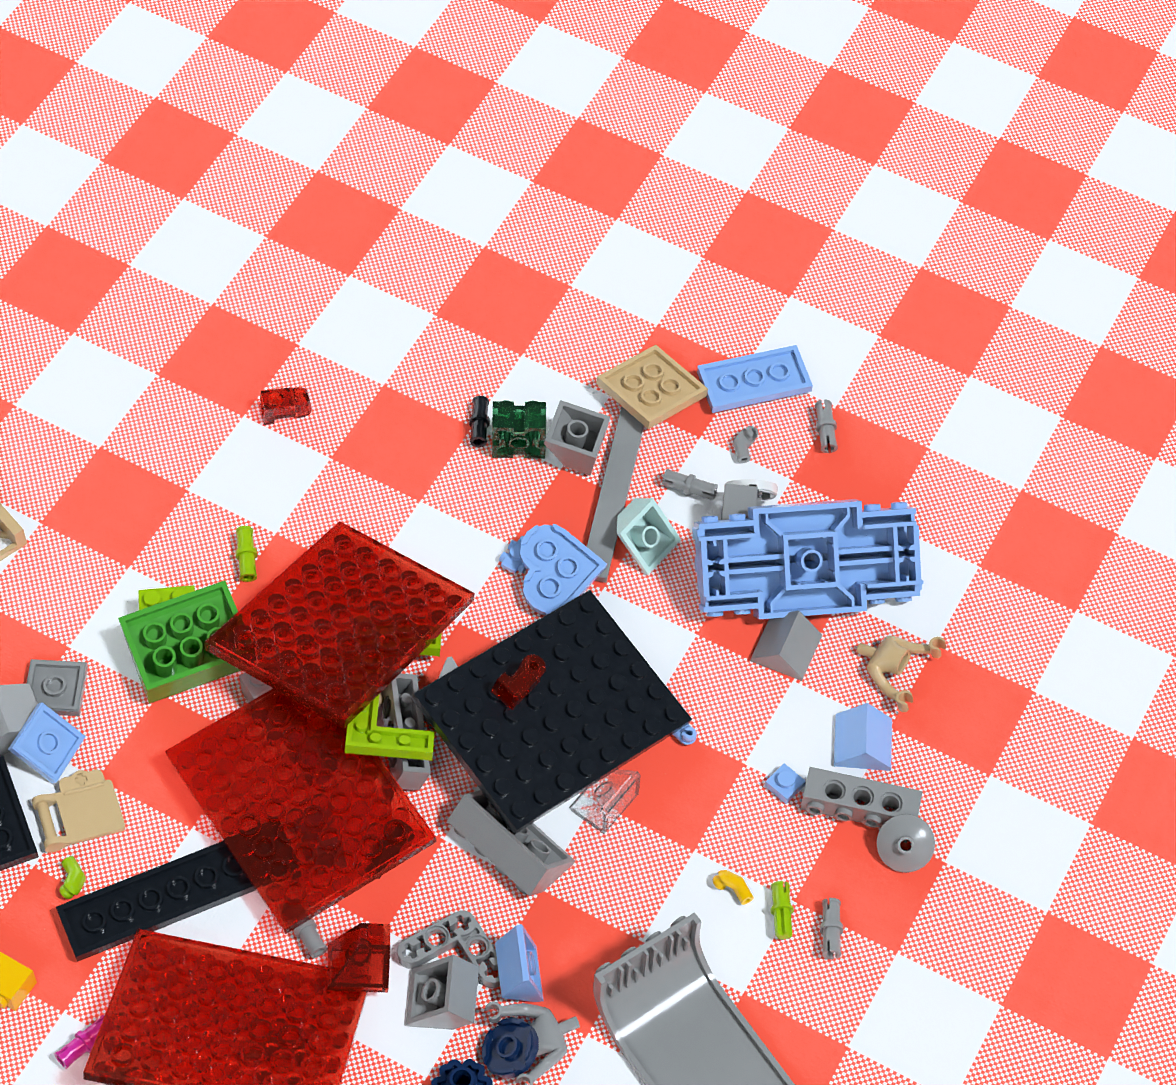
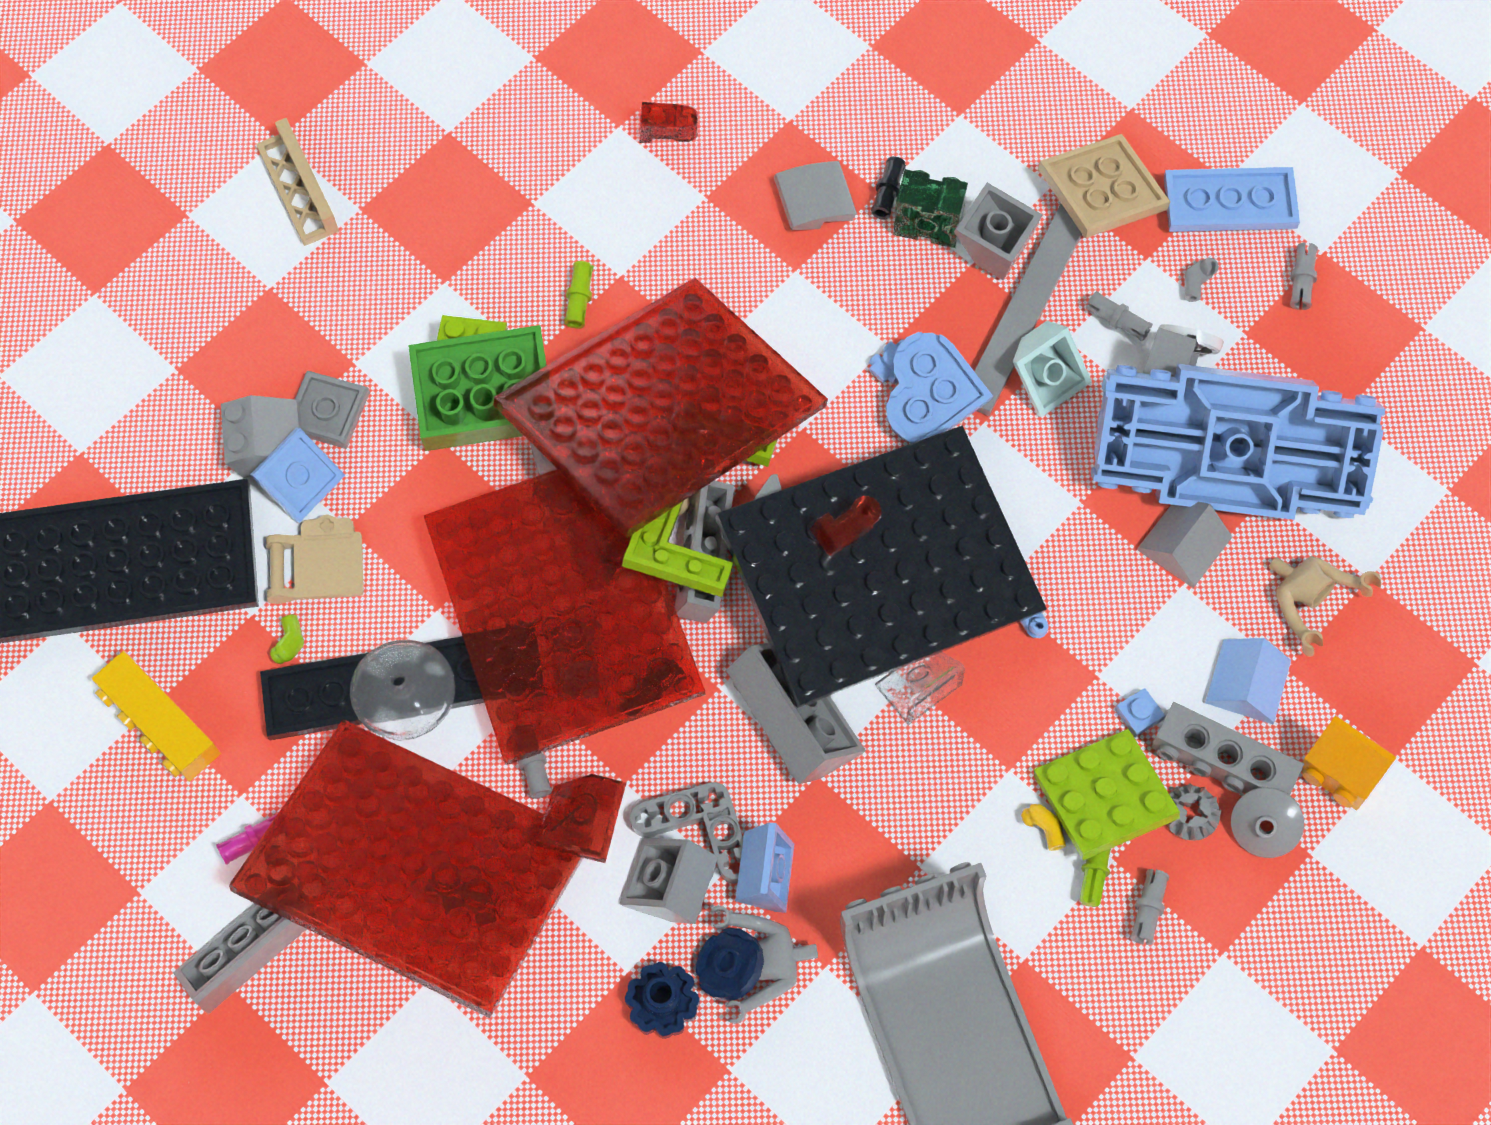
camera: 20 degrees right, 10 degrees up
(183, 909) = (406, 709): none -> clear dish
(421, 438) = (815, 195): none -> light grey slope
(775, 850) = (1106, 794): none -> lime plate
(833, 854) = (1198, 827): none -> light grey gear
(954, 784) = (1346, 763): none -> light orange slope

